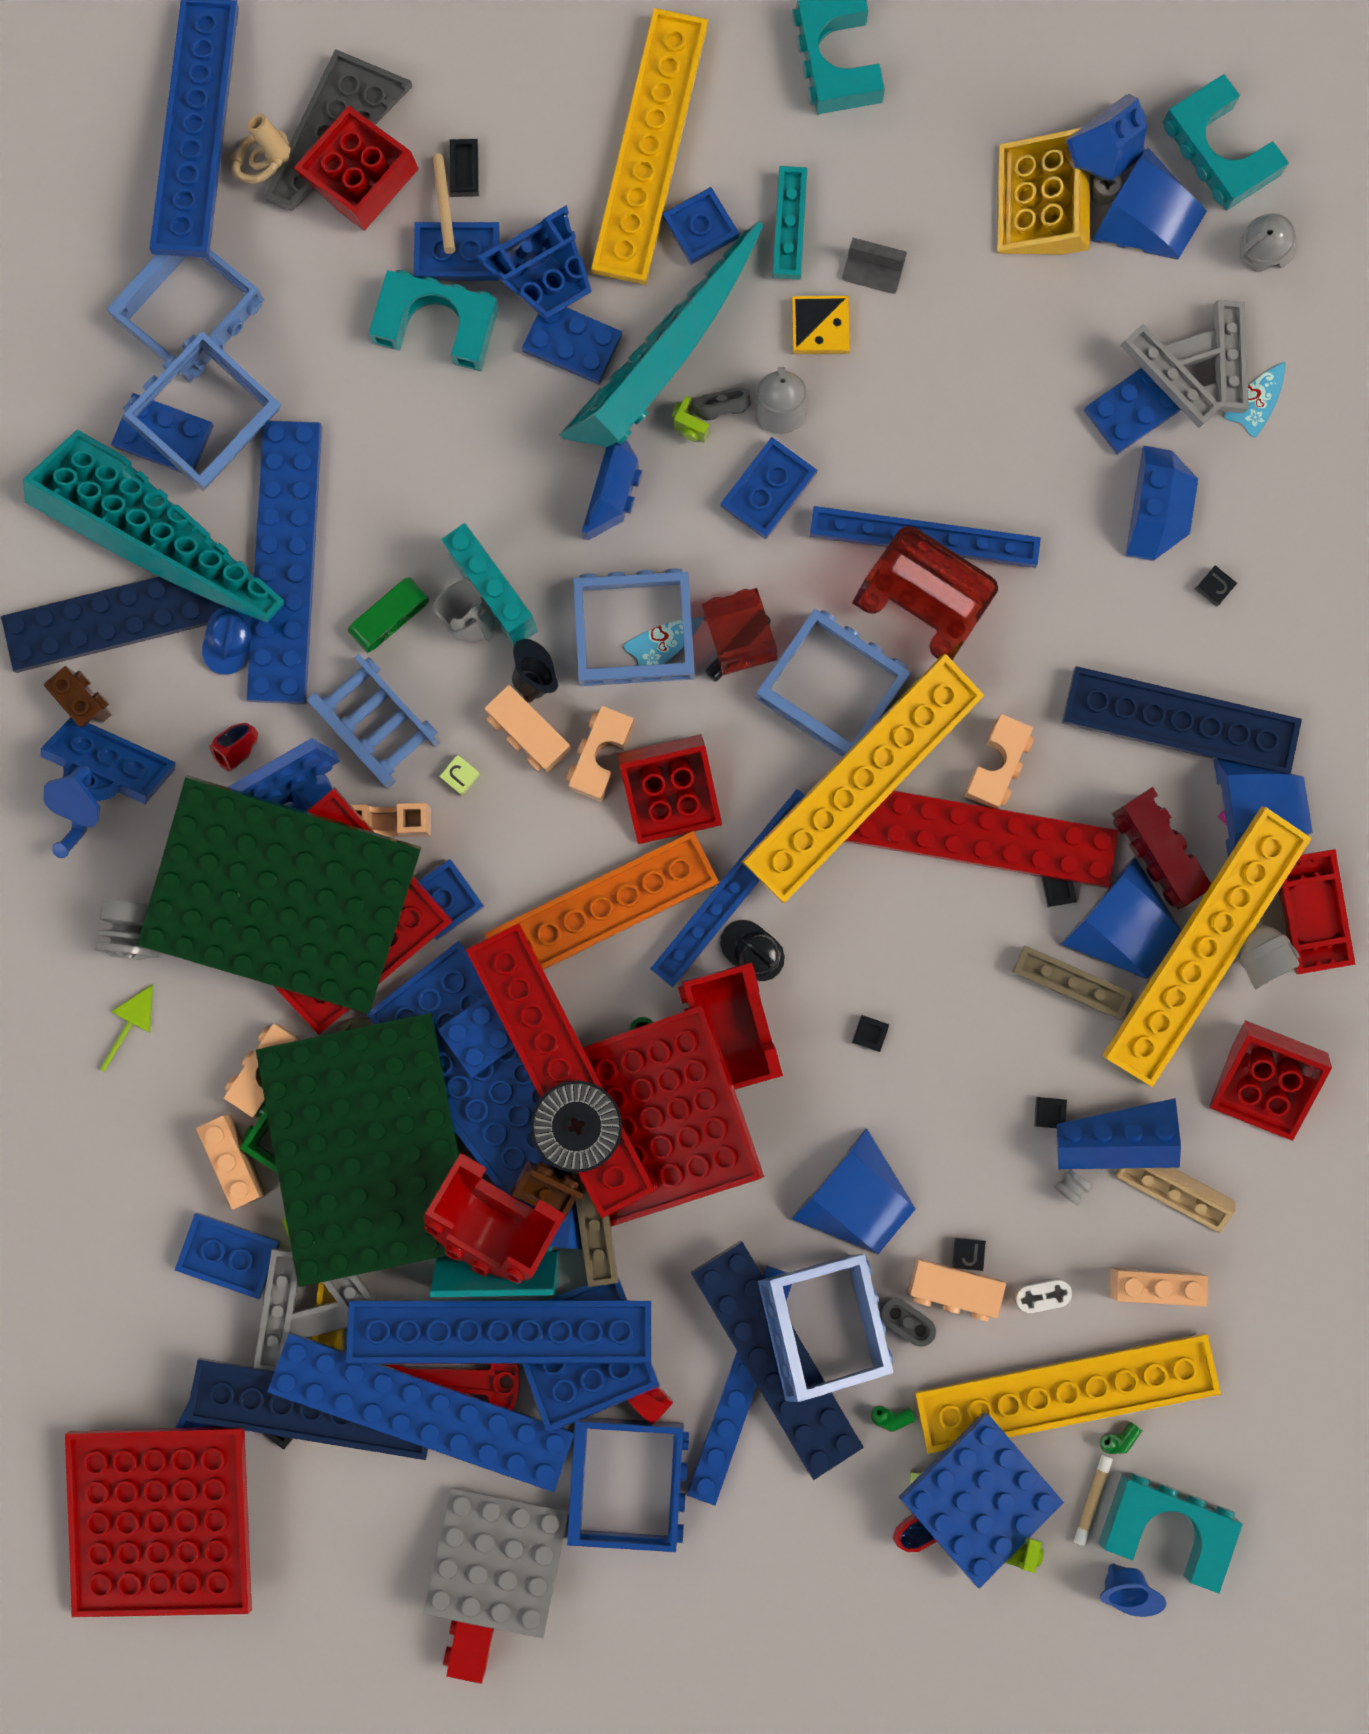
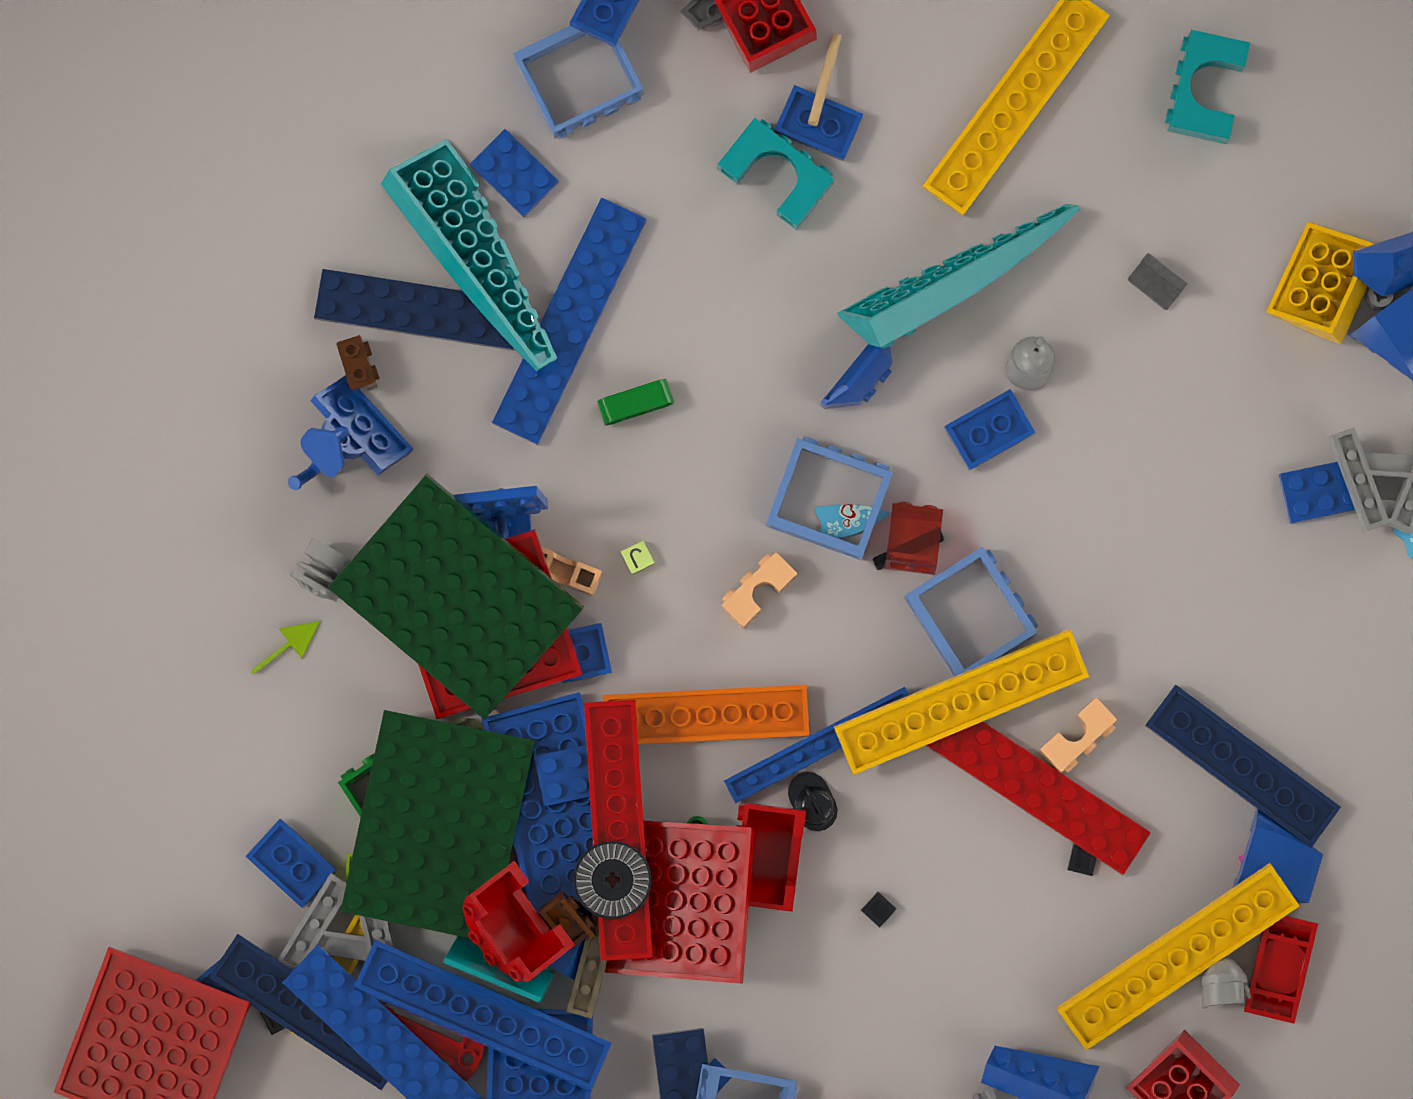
camera: 25 degrees right, 0 degrees up
(173, 367) = (575, 208): medium blue window -> none
(227, 641) = (495, 367): blue piece -> none
(231, 1163) = (325, 790): light nougat brick -> none
(234, 745) = (466, 455): red rock -> none
(246, 1089) = (362, 737): light nougat arch -> none
(365, 747) = (563, 479): medium blue fence -> none
(464, 168) = (855, 53): black tile -> none
(464, 612) = (699, 427): light grey helmet -> none
(491, 584) = (728, 415): teal arch -> none
(526, 730) = (707, 544): light nougat brick -> none
(533, 671) = (733, 499): black piece -> none
(542, 265) = (883, 167): blue wedge -> none
(573, 343) = (881, 237): blue plate -> none
(669, 789) = (802, 642): red slope -> none
(690, 426) = (947, 354): lime bracket -> none
(700, 225) = (1029, 186): blue plate -> none
(721, 403) = (982, 343): dark grey plate -> none
(789, 222) = (1103, 215): teal plate -> none
(820, 324) = (1092, 311): tile -> none
(859, 1199) = (811, 1037): blue wedge -> none
(931, 586) = (1085, 568): clear red windscreen -> none
(964, 541) = (1100, 525): blue plate -> none
(1049, 1112) = (995, 1034): black tile -> none
(1072, 982) = (1059, 939): dark tan plate -> none
(1127, 925) = (1124, 912): blue wedge -> none
(1161, 504) = (1307, 580): blue wedge -> none
(1161, 849) = (1178, 863): dark red wedge -> none
(1216, 586) = (1321, 667): black tile -> none

